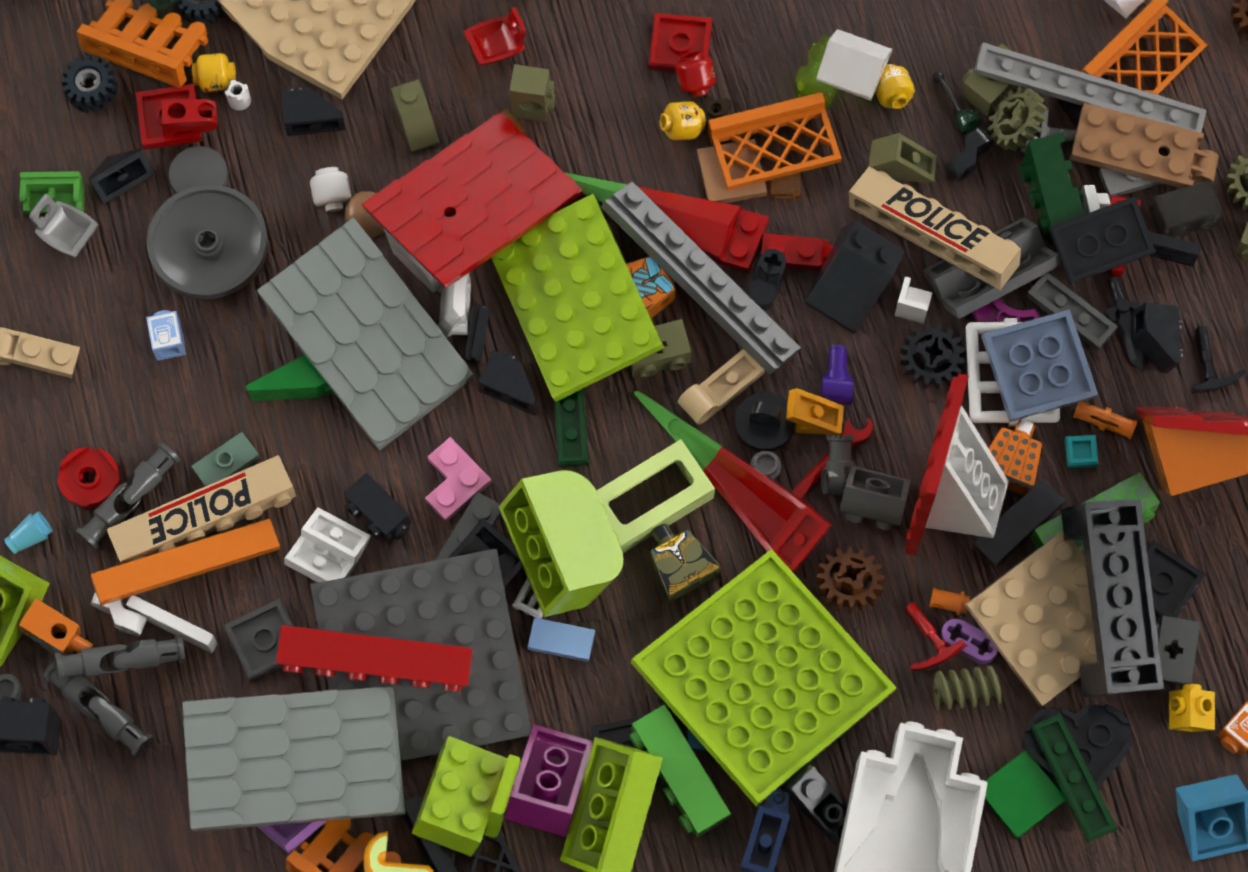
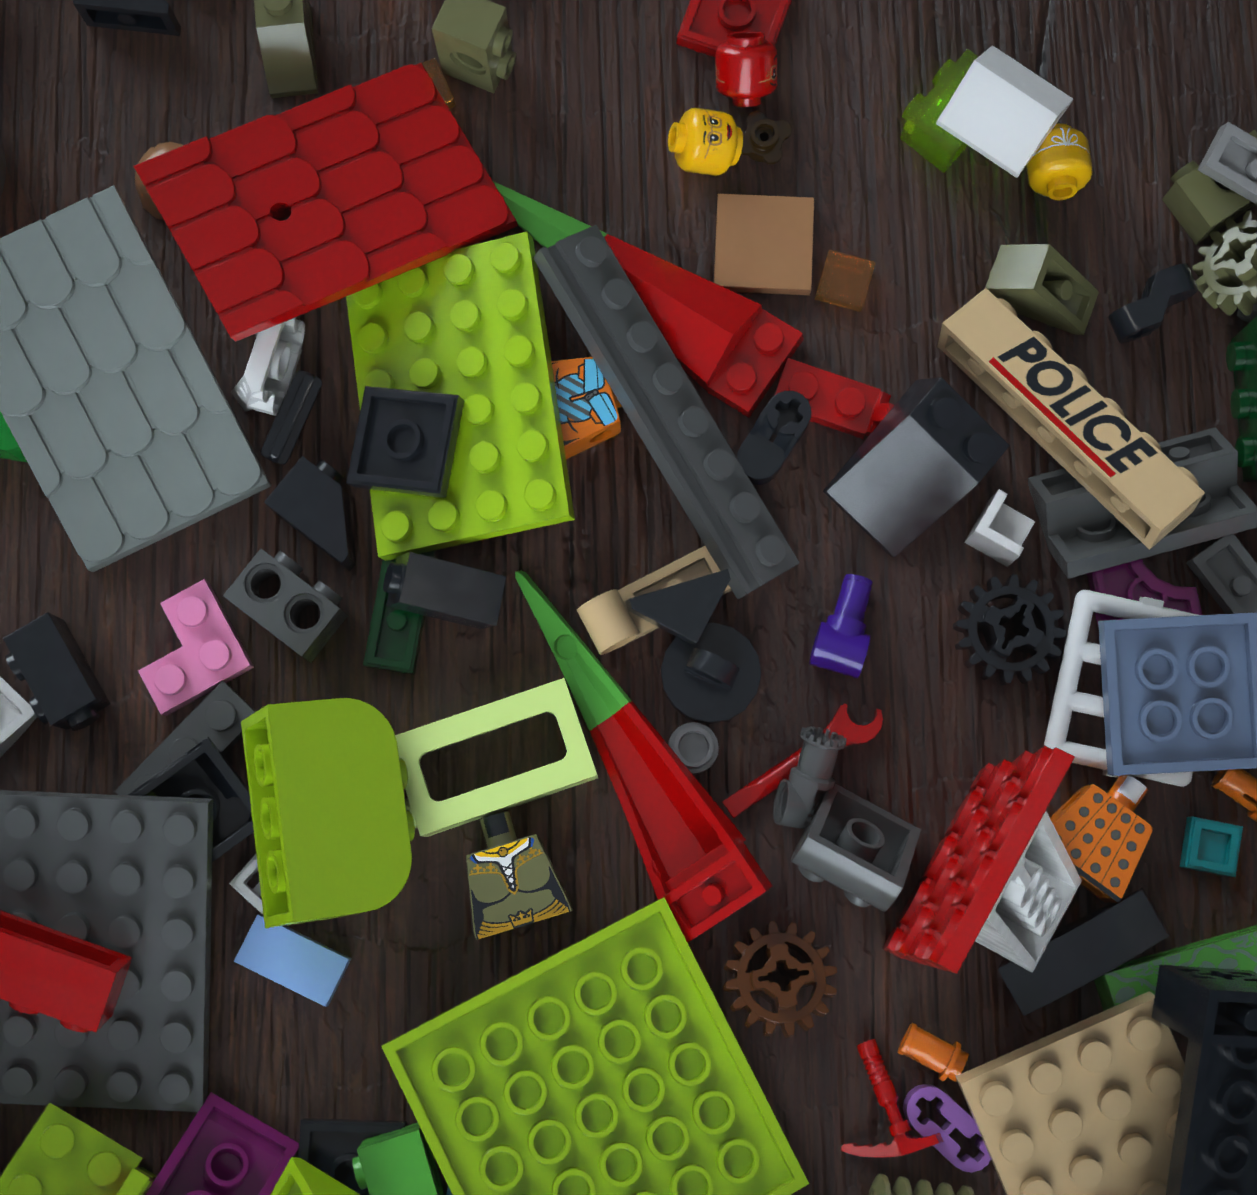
camera: 15 degrees right, 10 degrees up
(330, 189) = (122, 126): white head -> none
(499, 446) = (281, 611): none -> dark grey brick
(553, 327) = (405, 441): none -> black tile
(598, 407) = (444, 590): none -> black brick
(675, 352) = (596, 520): olive brick -> none
(739, 383) = (682, 607): none -> black slope
(761, 121) = (848, 169): orange fence -> none
(814, 413) = (792, 683): light orange slope -> none
(965, 119) = (1162, 241): clear green hinge -> none

